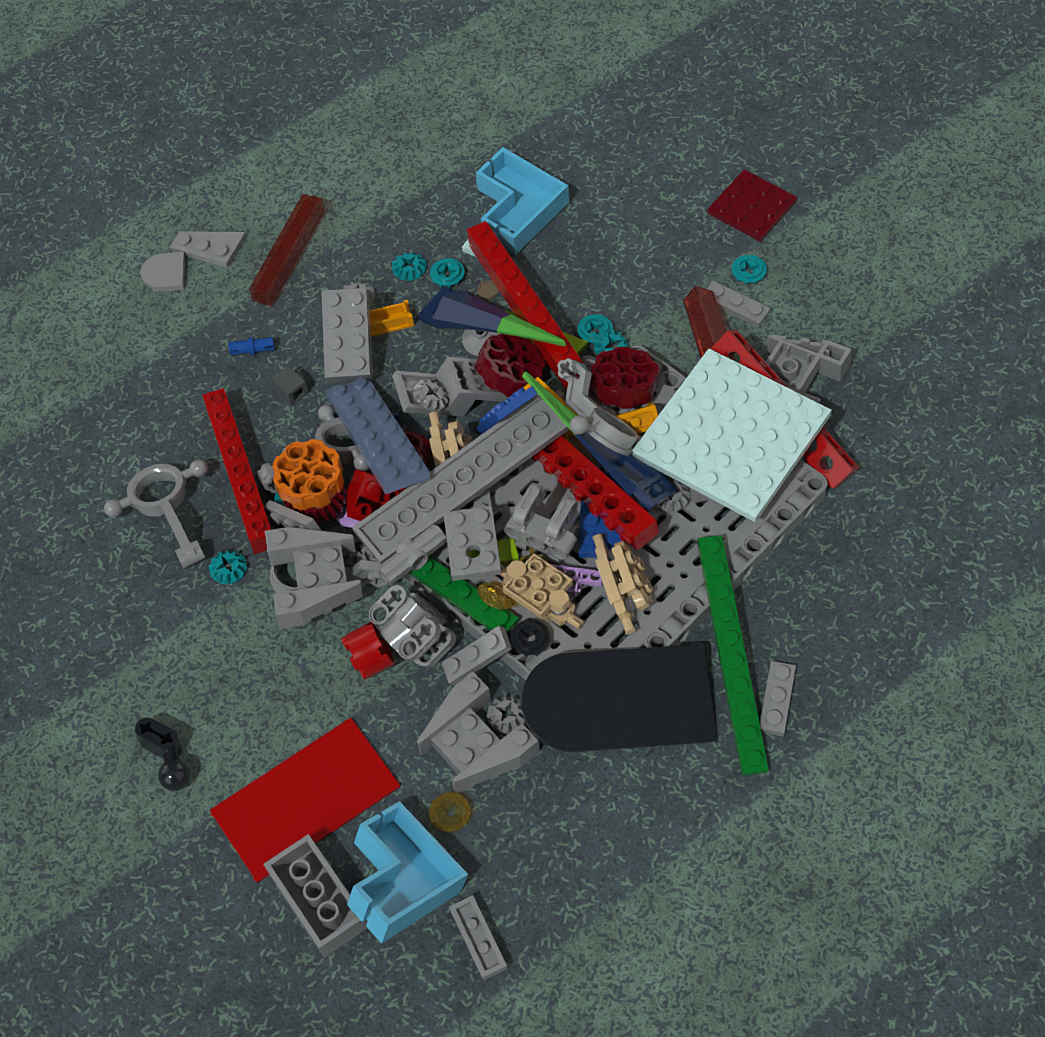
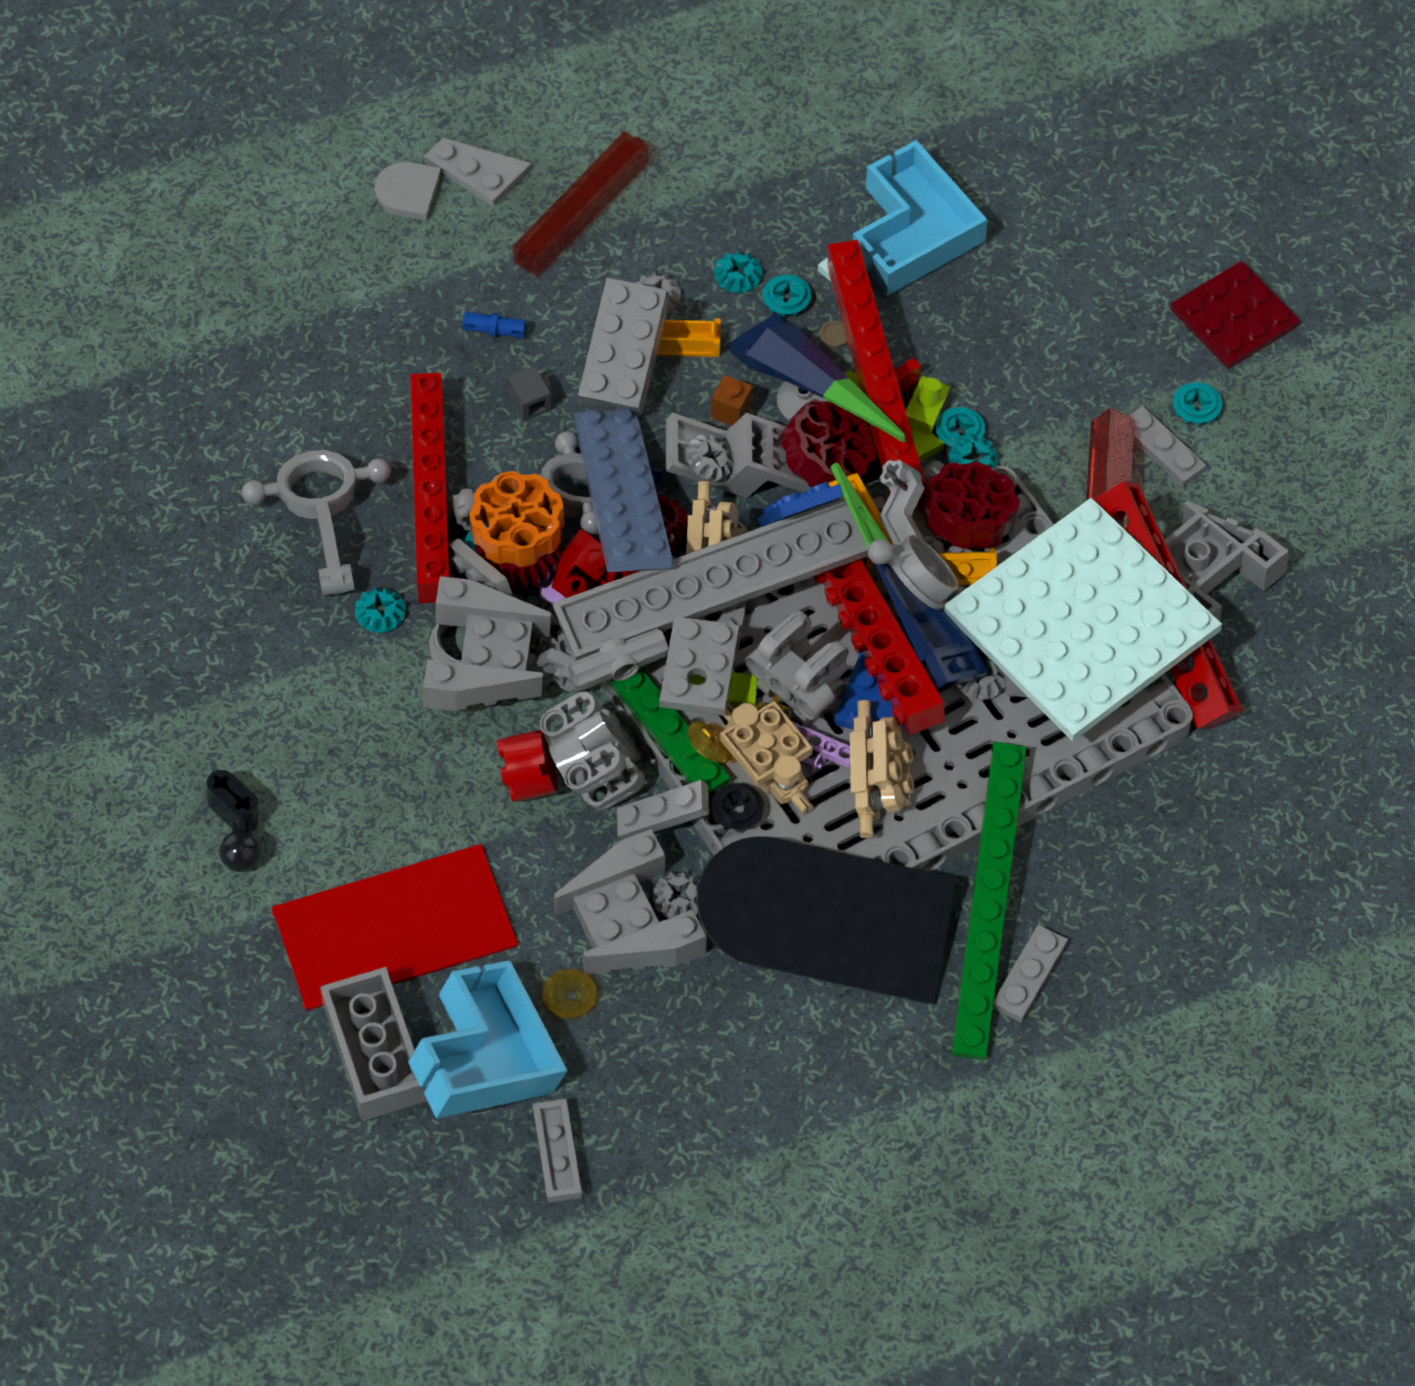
camera: 10 degrees right, 0 degrees up
(432, 352) = (731, 400): none -> dark orange brick
(549, 301) = (908, 376): none -> red plate
(567, 317) = (926, 404): none -> lime tile

